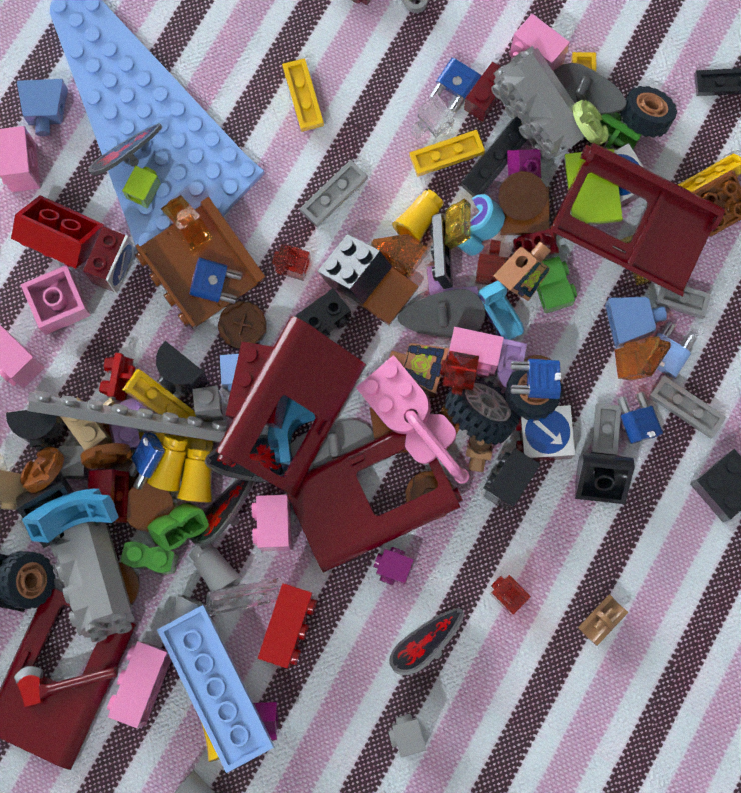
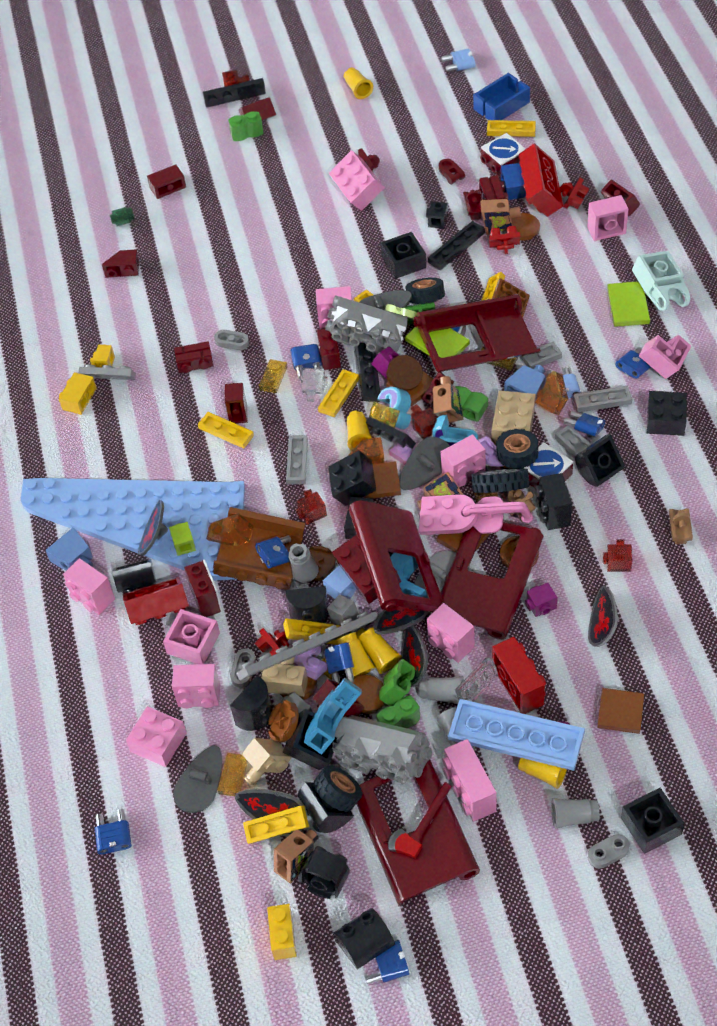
camera: 40 degrees left, 25 degrees down
(70, 182) = (134, 576): none -> black brick
(73, 372) = (241, 655): none -> light grey plate
(103, 455) = (313, 680): dark orange tile -> none
(219, 321) = (303, 566): none -> light grey plant
(334, 75) = (236, 403): none -> dark red brick
(344, 746) = (621, 710): none -> dark orange tile
(407, 735) = (649, 666): light grey brick -> none
(408, 71) = (273, 376): none -> clear yellow plate
(459, 371) = (468, 465): clear red brick -> none
(542, 378) = (514, 433): blue piece -> none
(577, 344) = (512, 412): none -> tan brick
(674, 45) = (403, 255): none -> black brick

